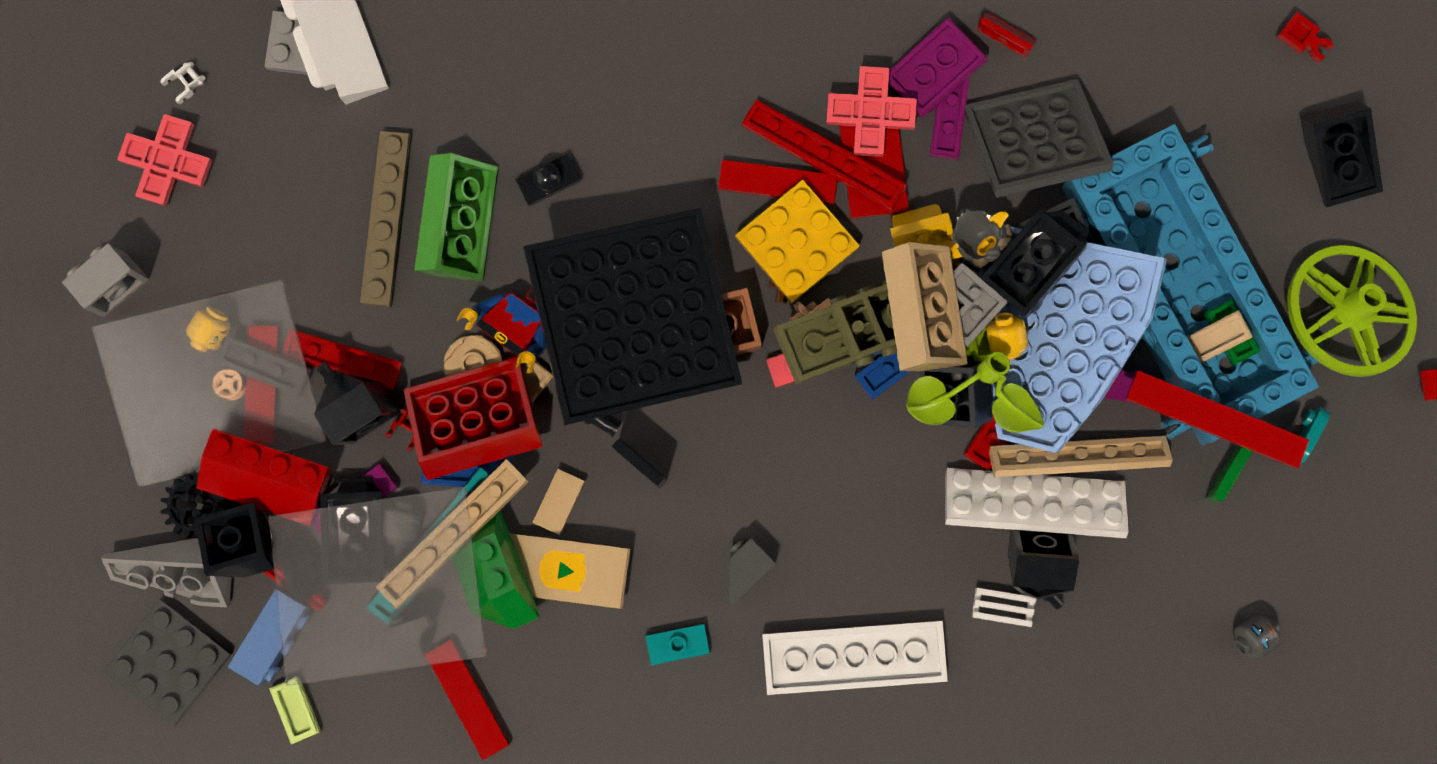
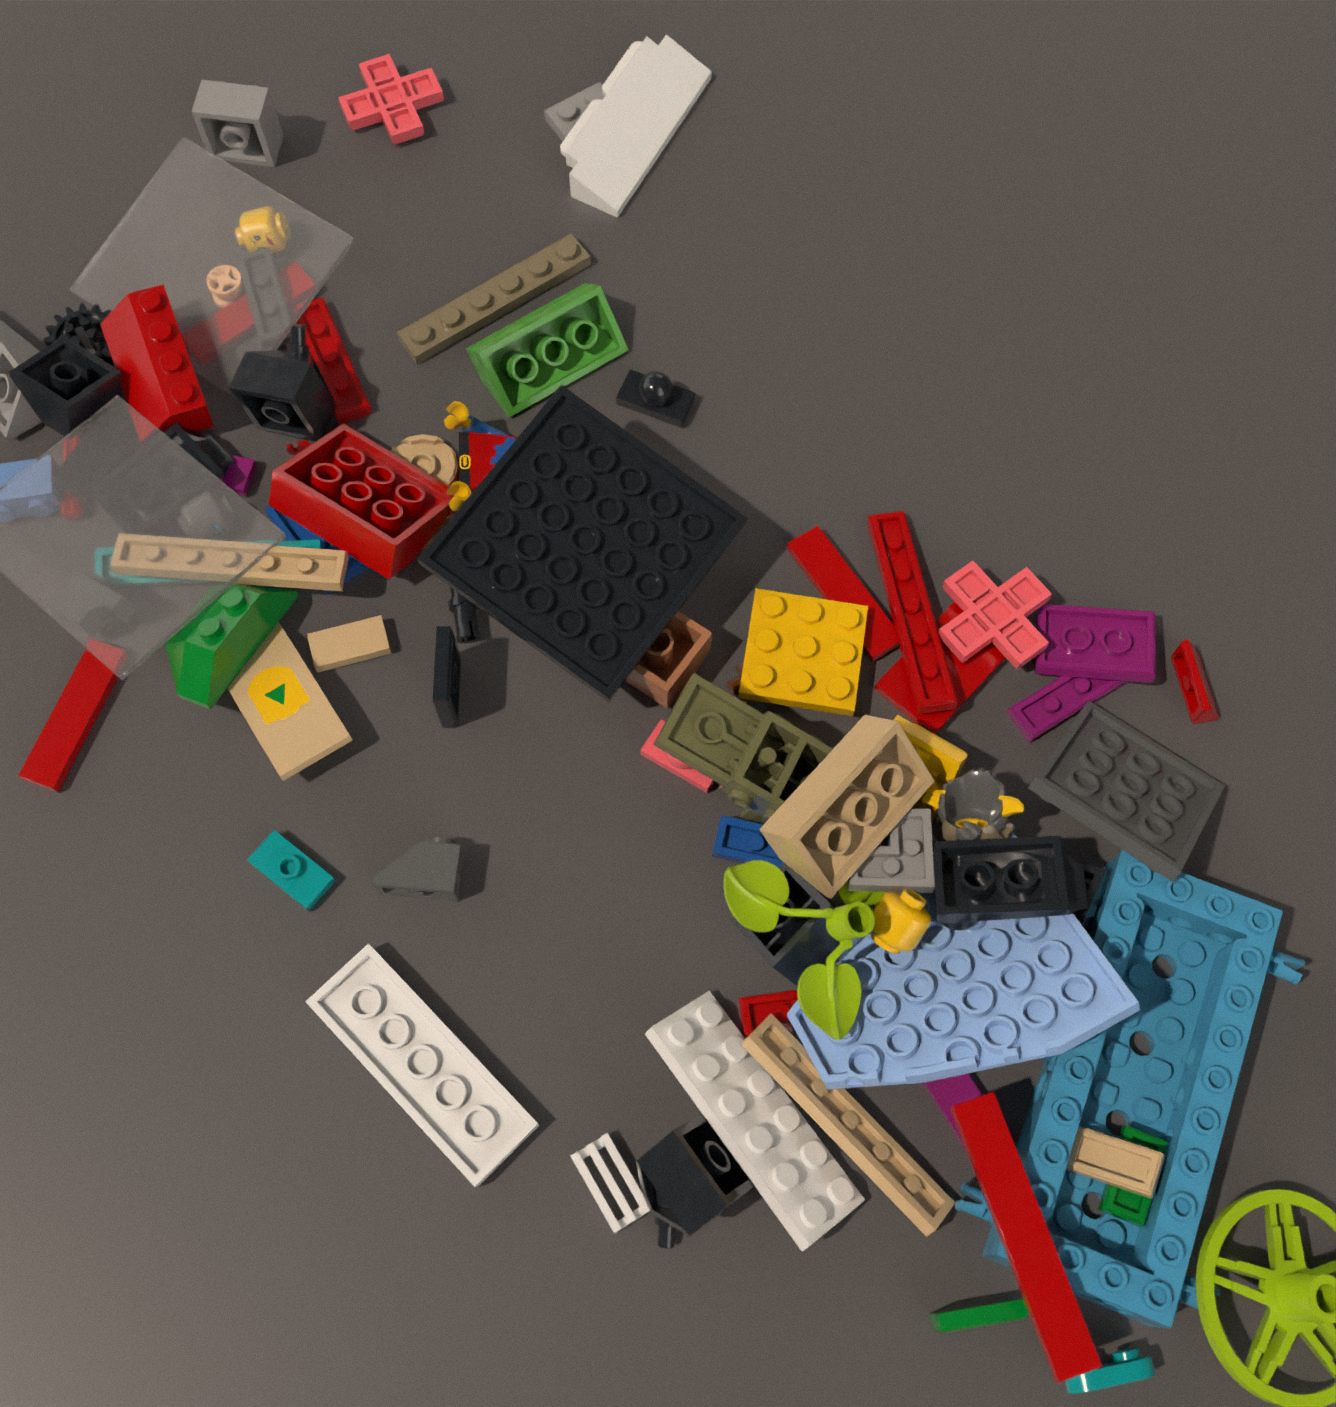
camera: 45 degrees right, 15 degrees down
(172, 75) = (475, 73): white piece -> none

